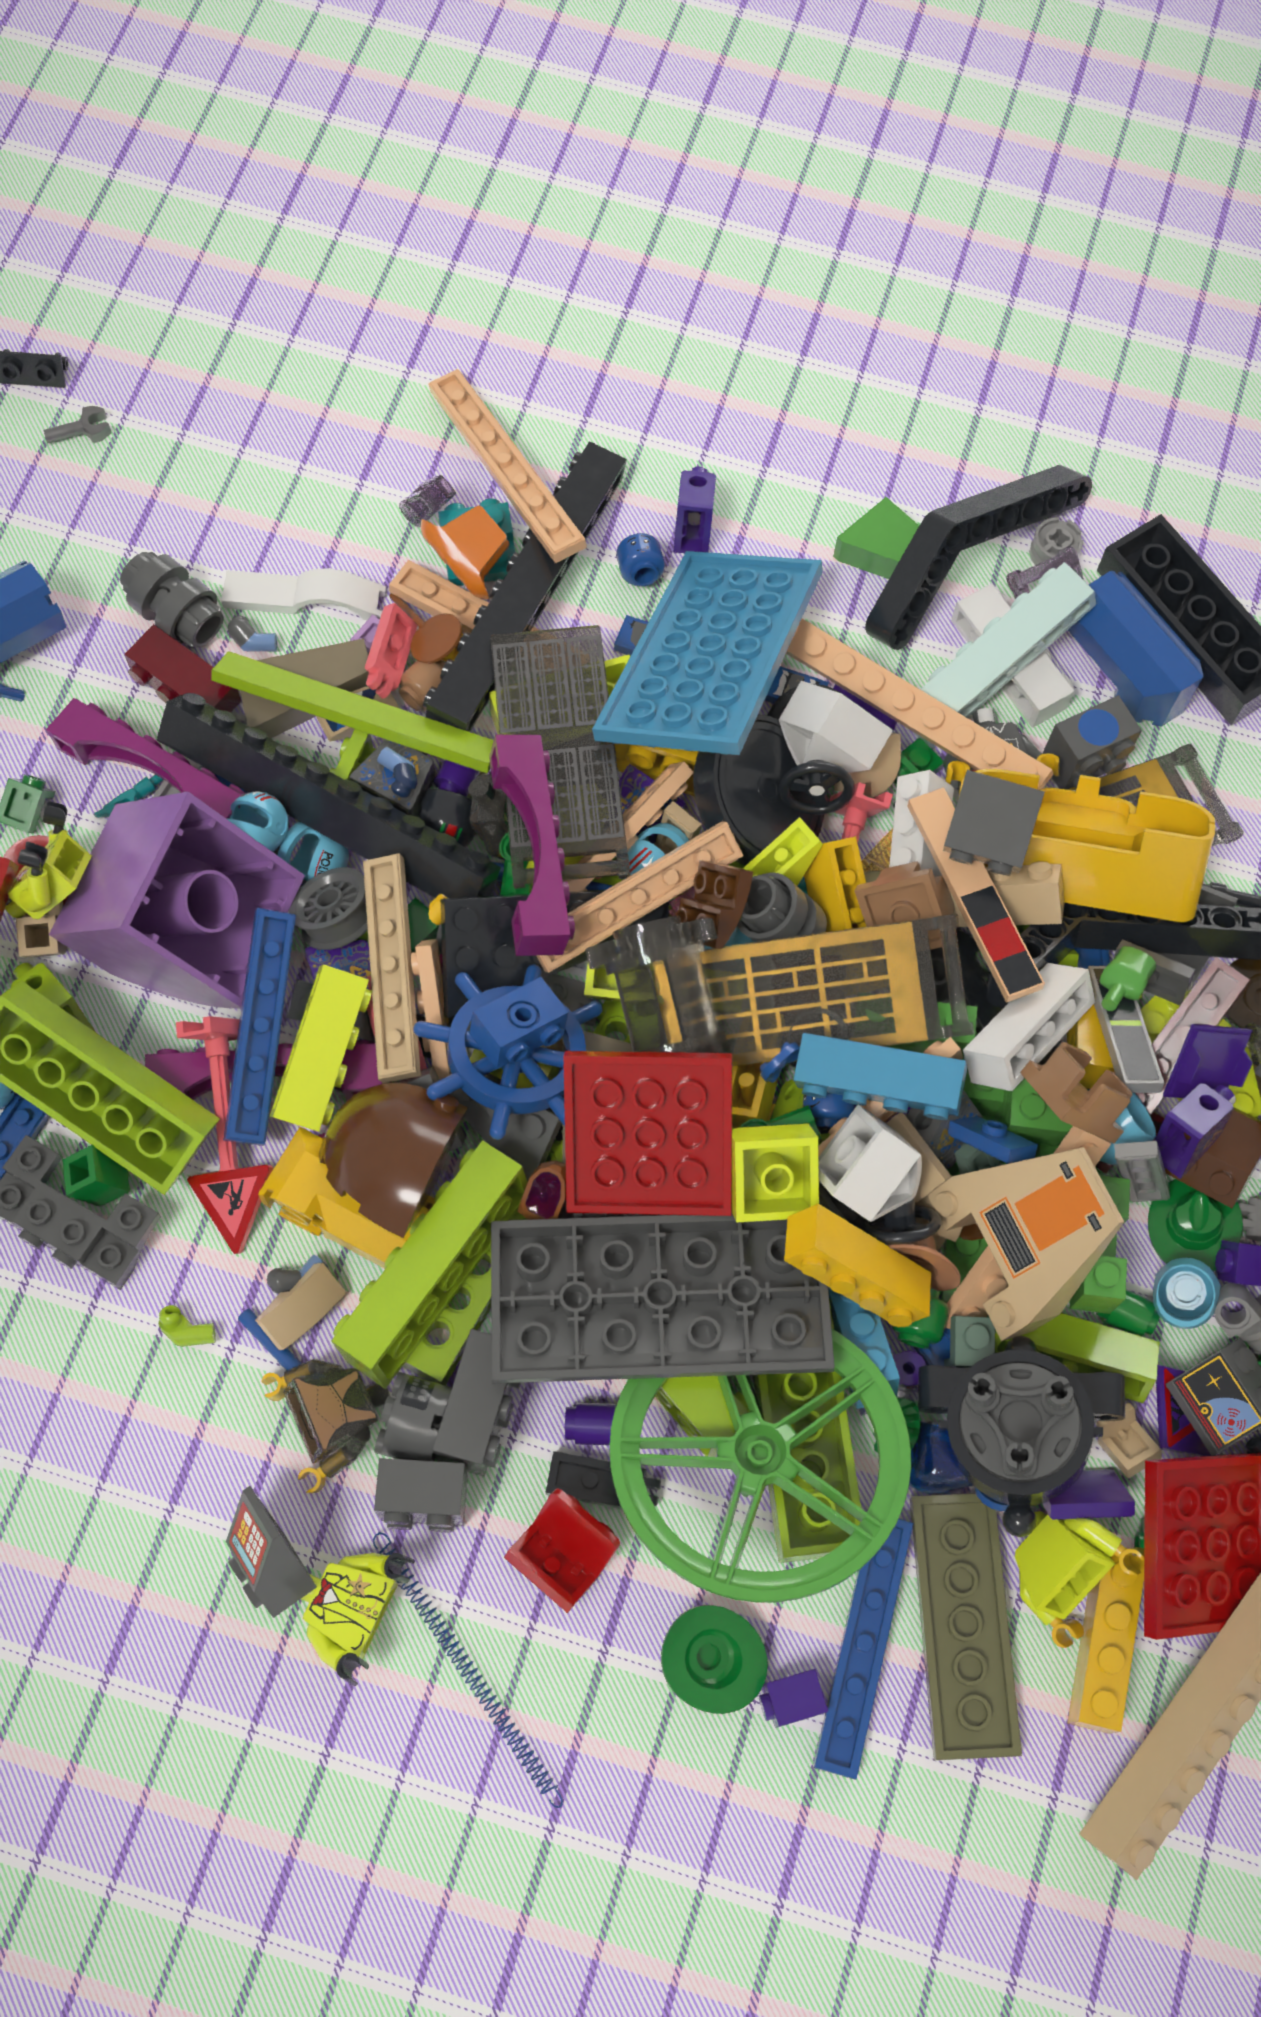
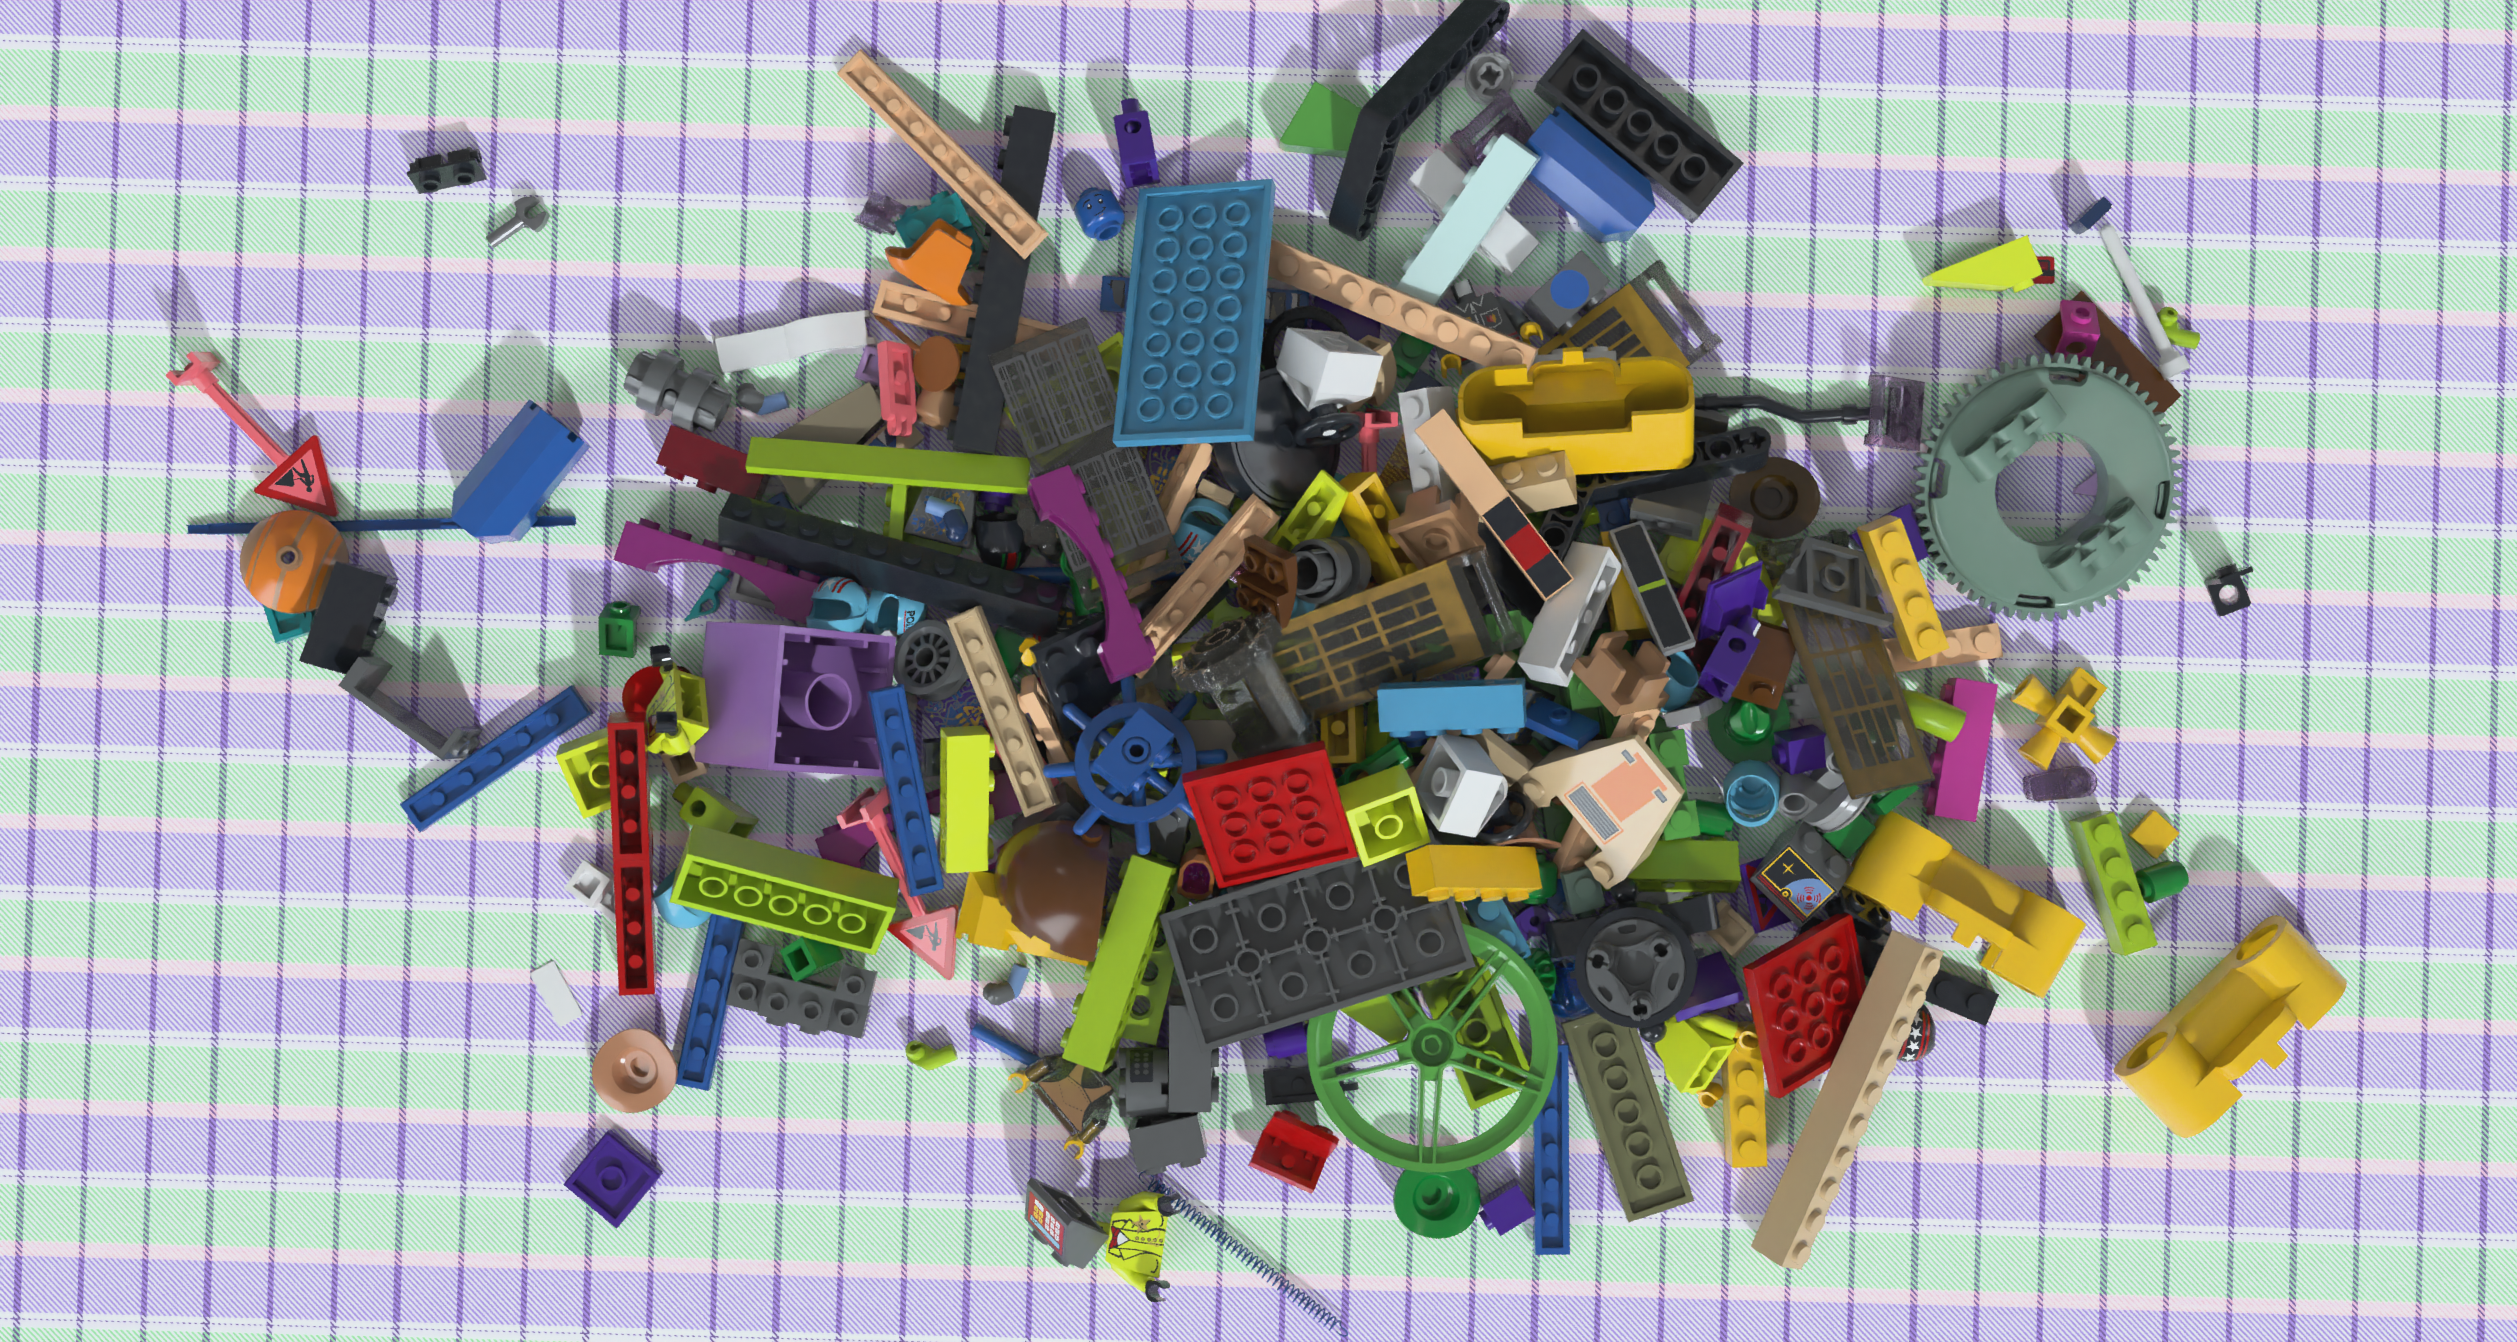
camera: 10 degrees left, 20 degrees up
(302, 1307) = (1019, 1017): tan slope -> none
(771, 1070) = (1361, 714): blue piece -> none
(993, 823) = (1495, 446): dark grey piece -> none
(1126, 976) = (1644, 538): bright green piece -> none

